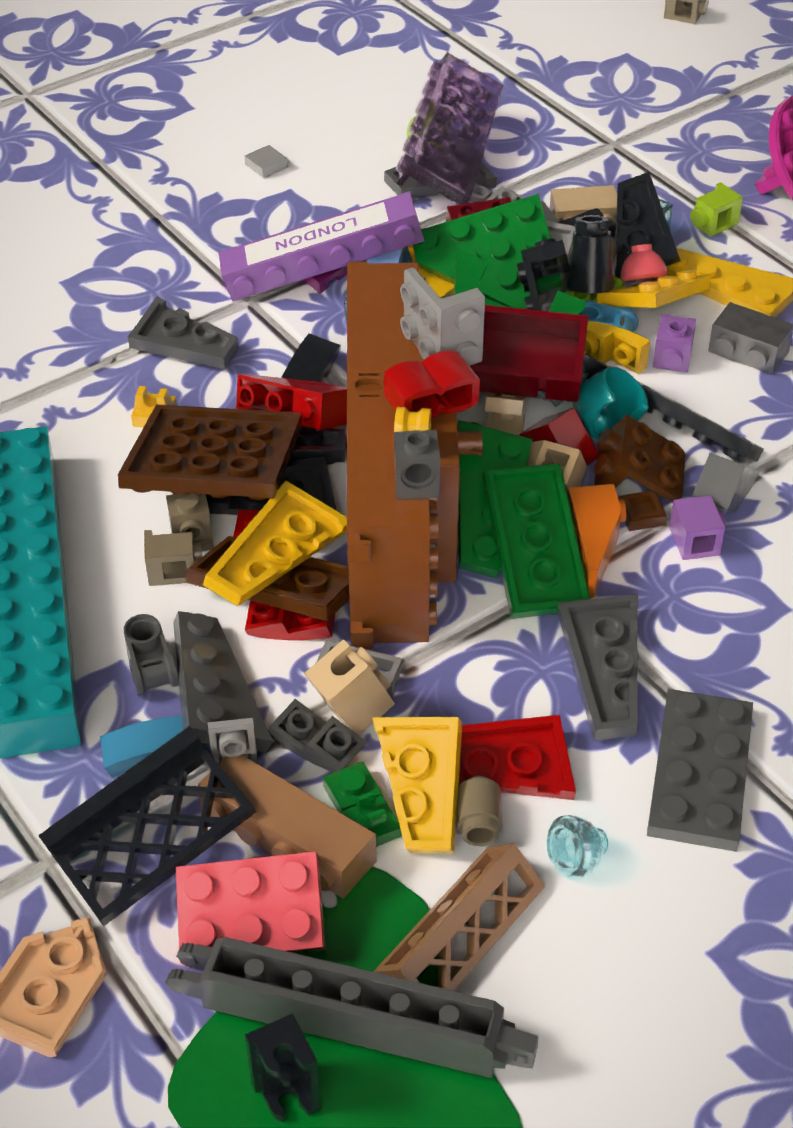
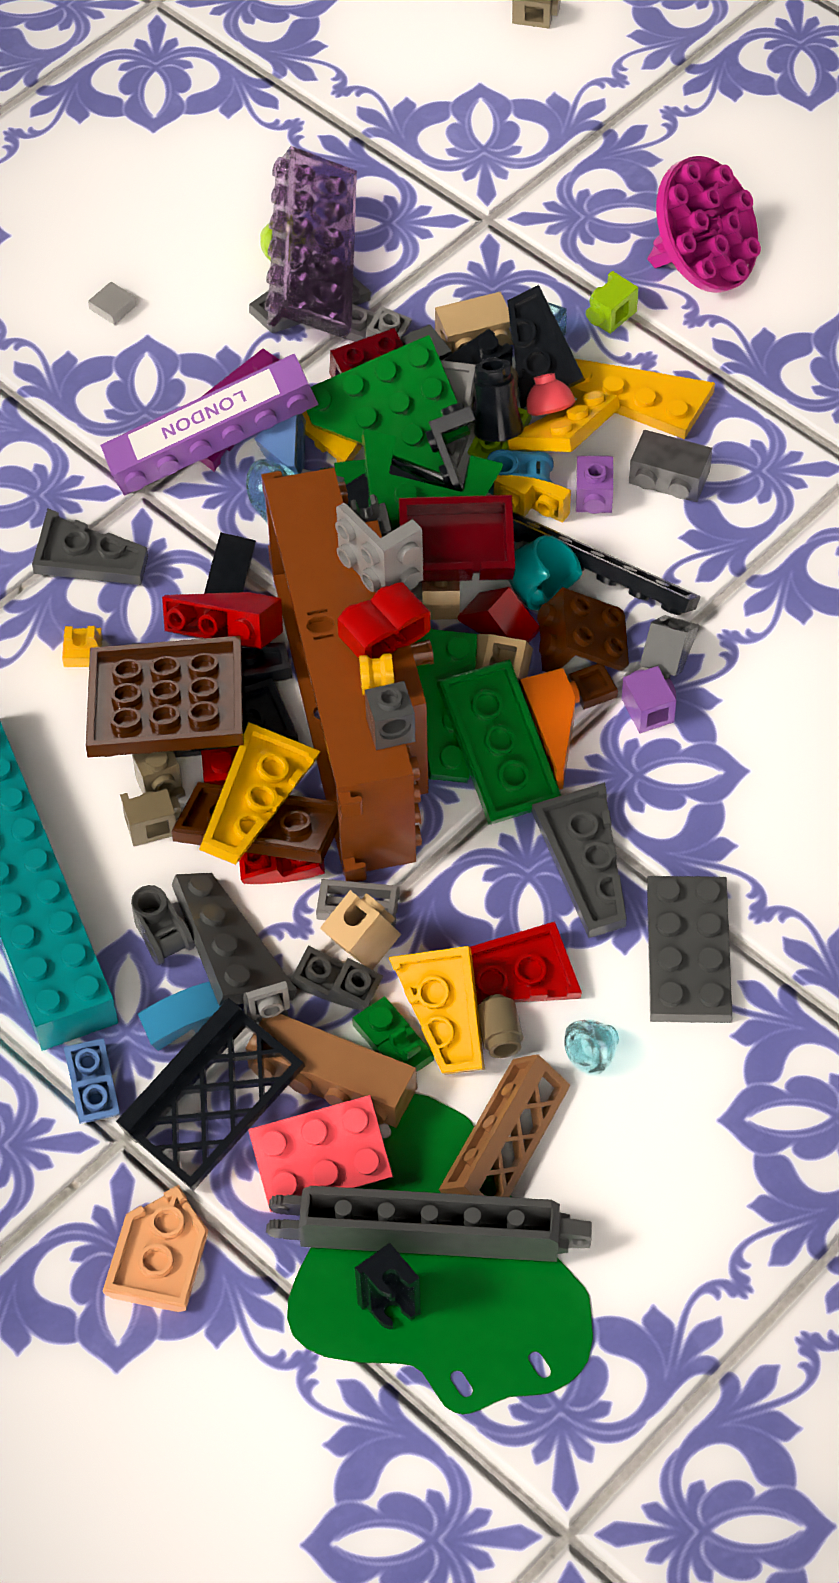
camera: 10 degrees left, 10 degrees up
(33, 794) = (91, 1081): none -> medium blue slope

